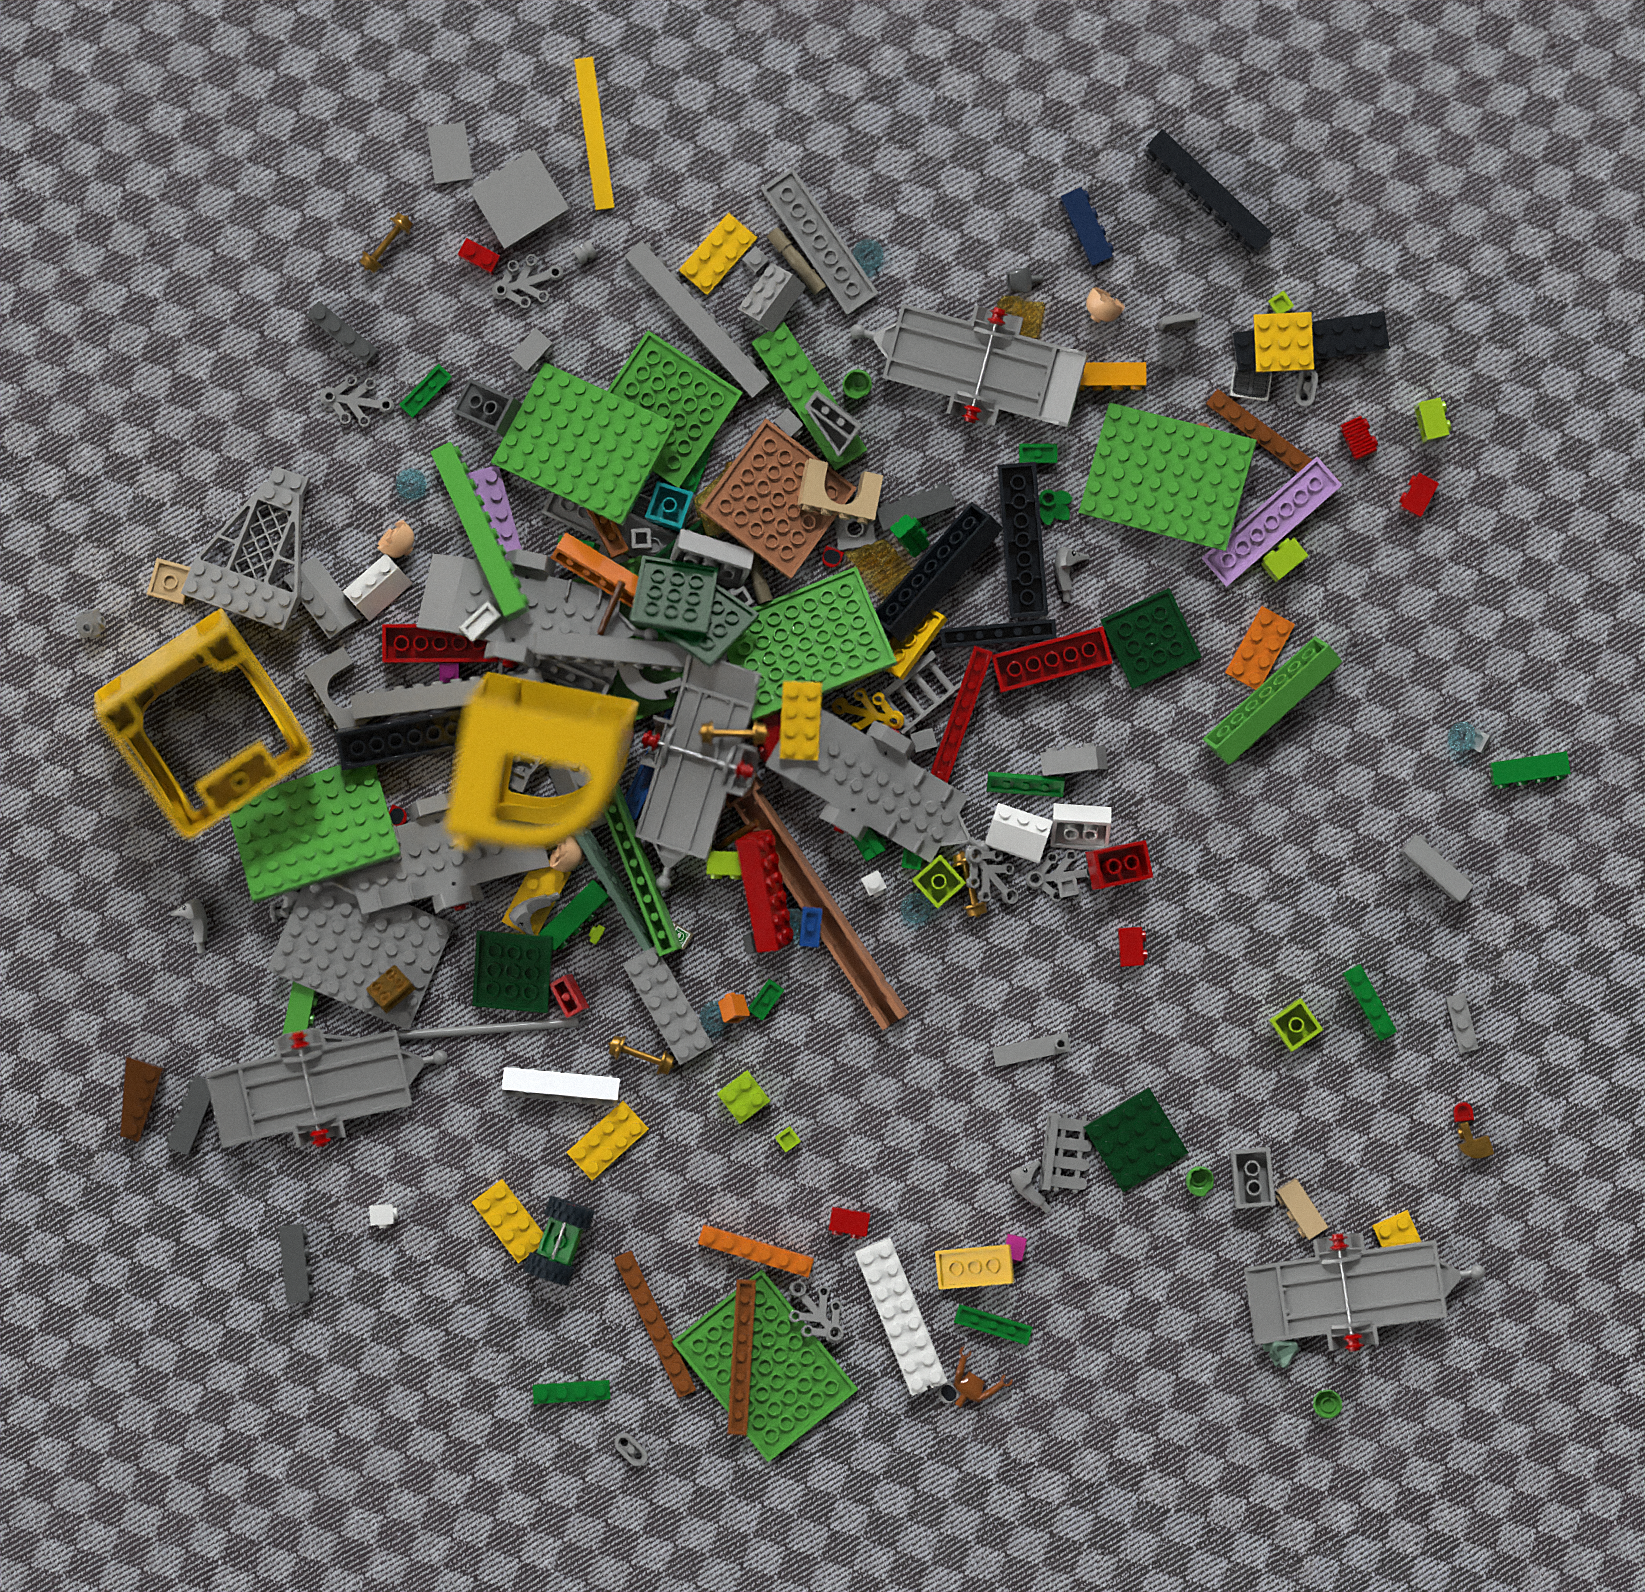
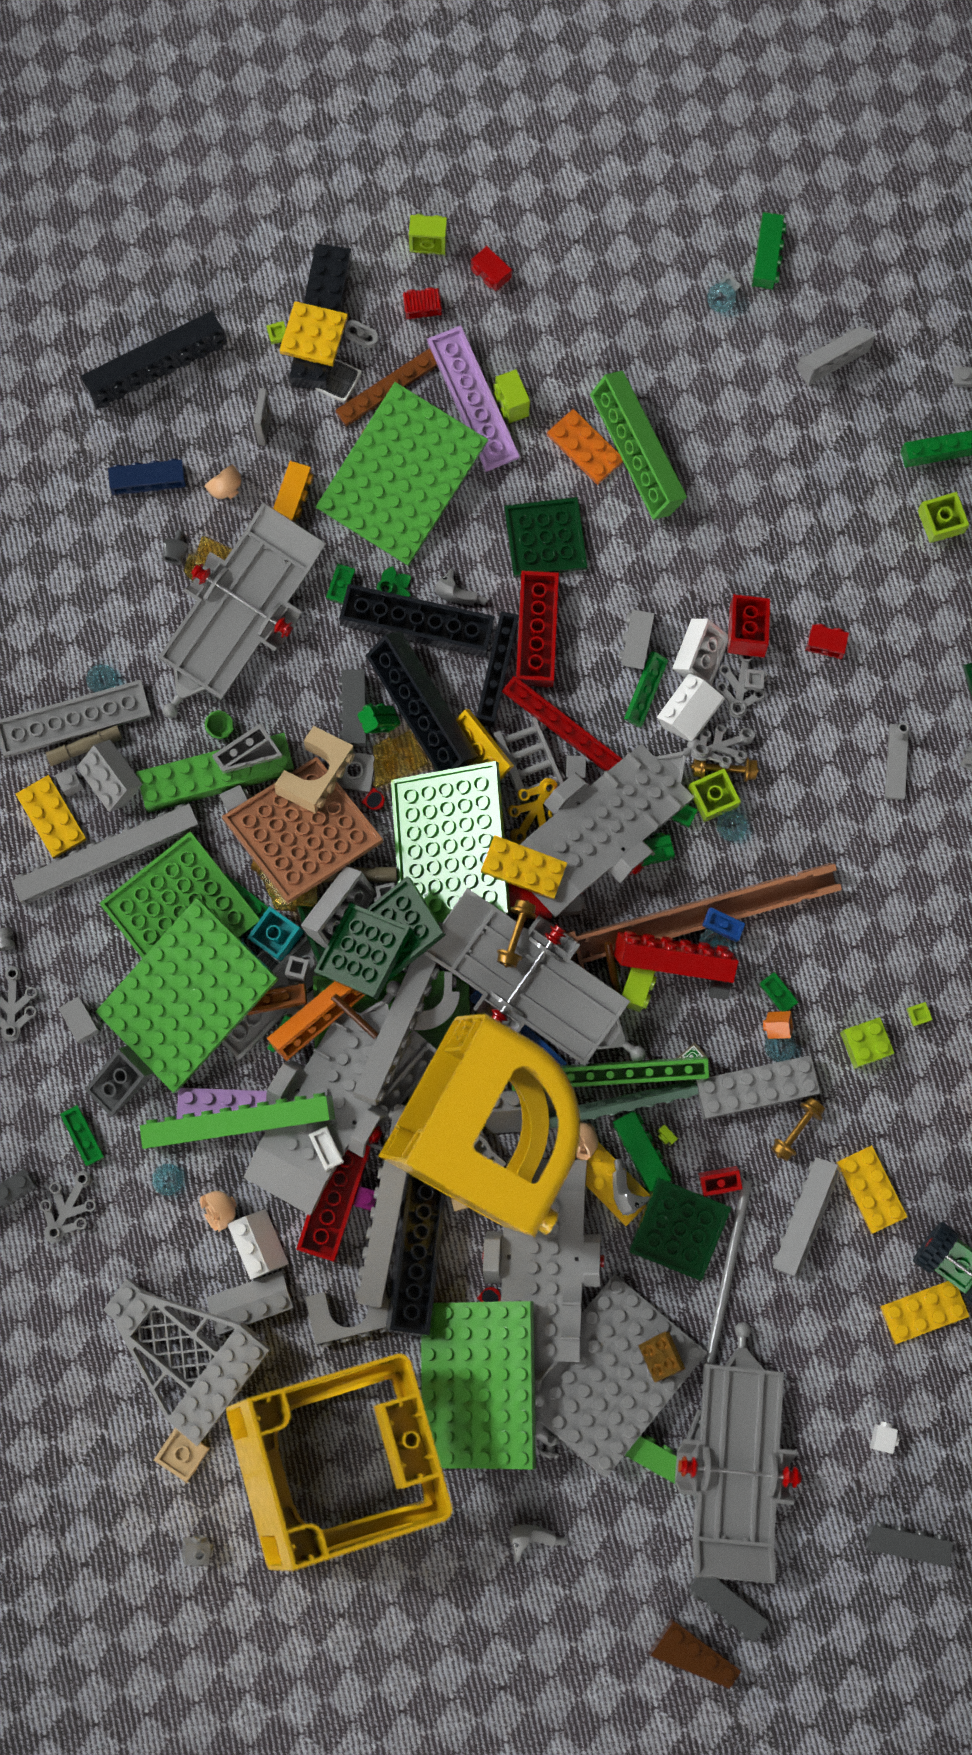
camera: 70 degrees left, 10 degrees down
(874, 884) = (697, 856): white brick -> none

